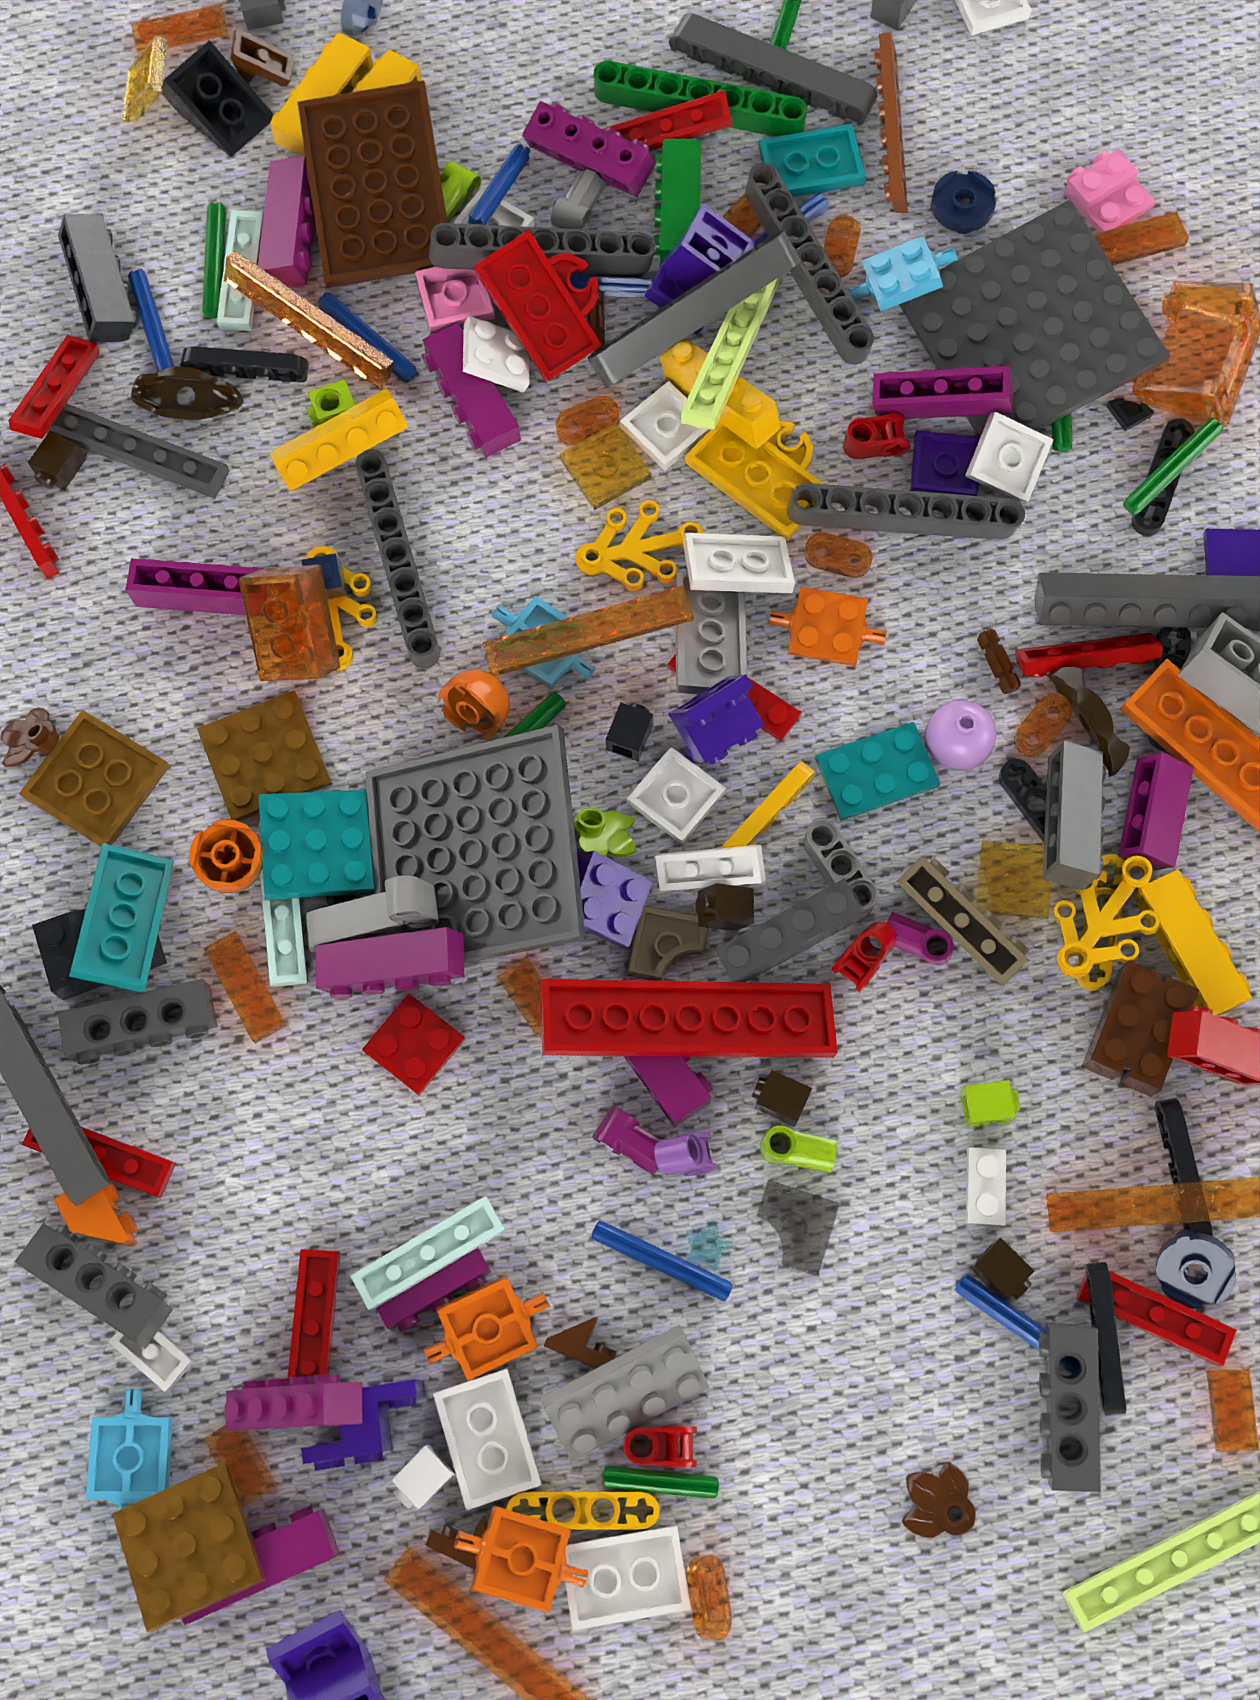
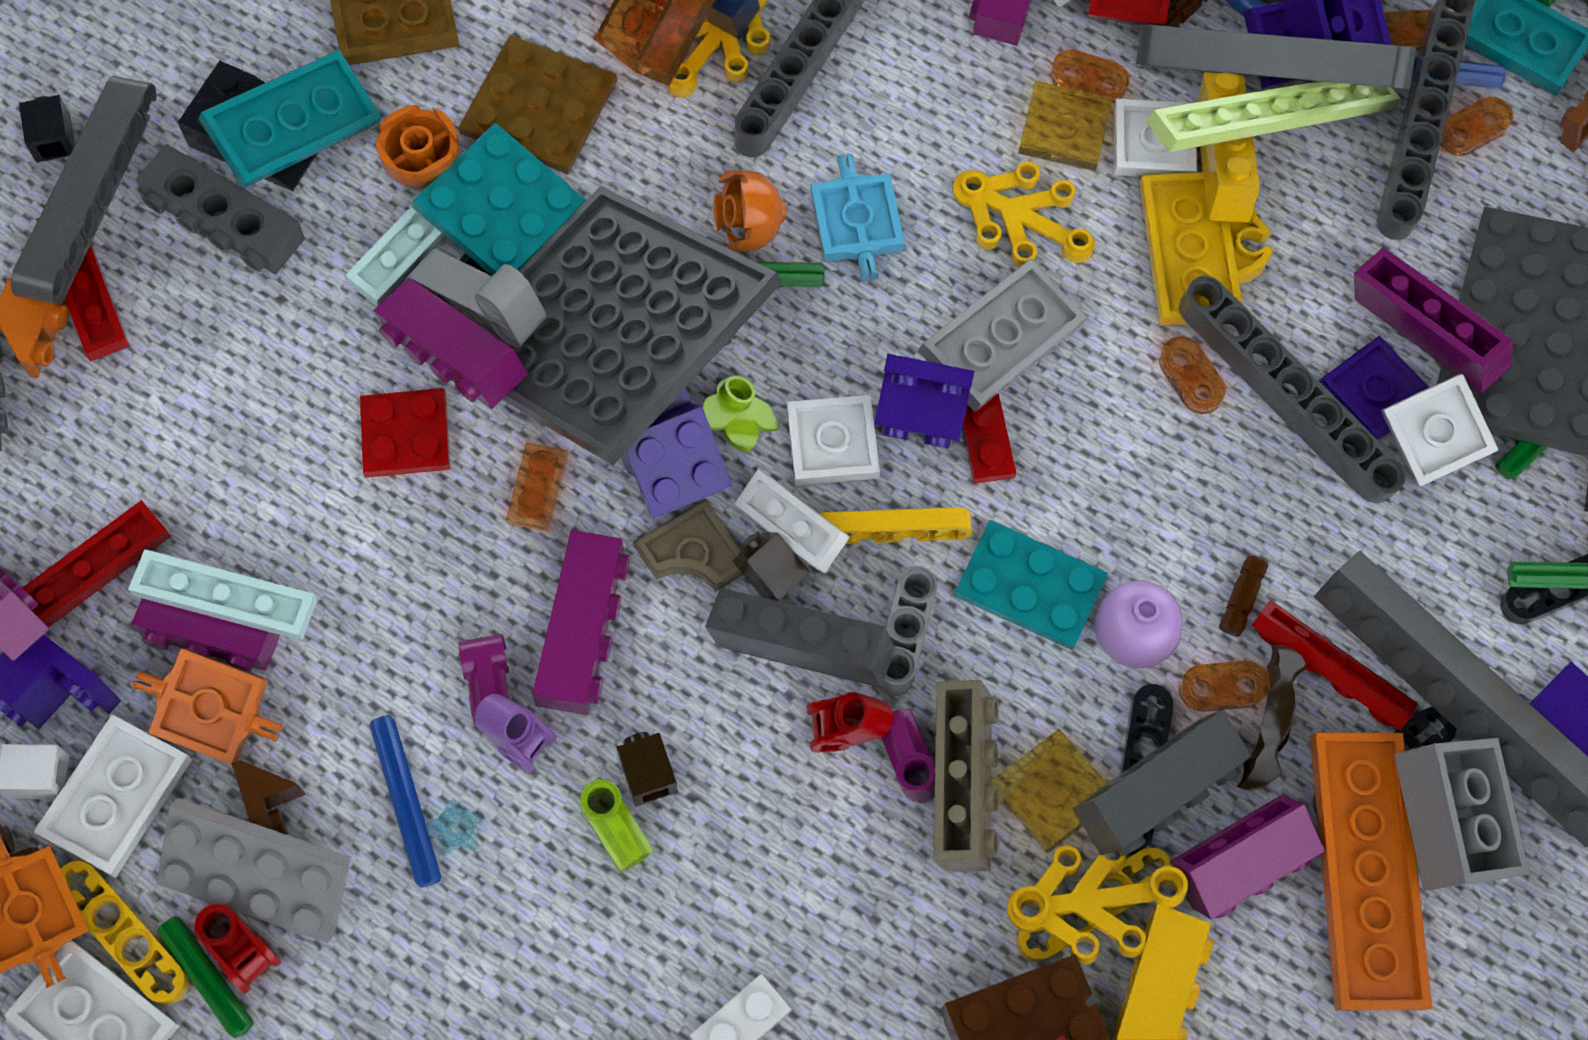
camera: 40 degrees right, 5 degrees down
(245, 987) = (326, 263): clear orange plate -> none
(588, 631) = (899, 235): clear orange plate -> none
(629, 731) = (850, 351): black brick -> none
(686, 1019) = (635, 621): red plate -> none
(738, 563) = (1091, 299): white plate -> none
(801, 1223) = (550, 891): clear smoke tile -> none
(827, 626) = (1118, 425): orange plate -> none
(881, 434) = (1336, 308): red piece -> none
(902, 273) = (1507, 193): medium azure plate -> none
(989, 1103) = (819, 953): lime brick -> none

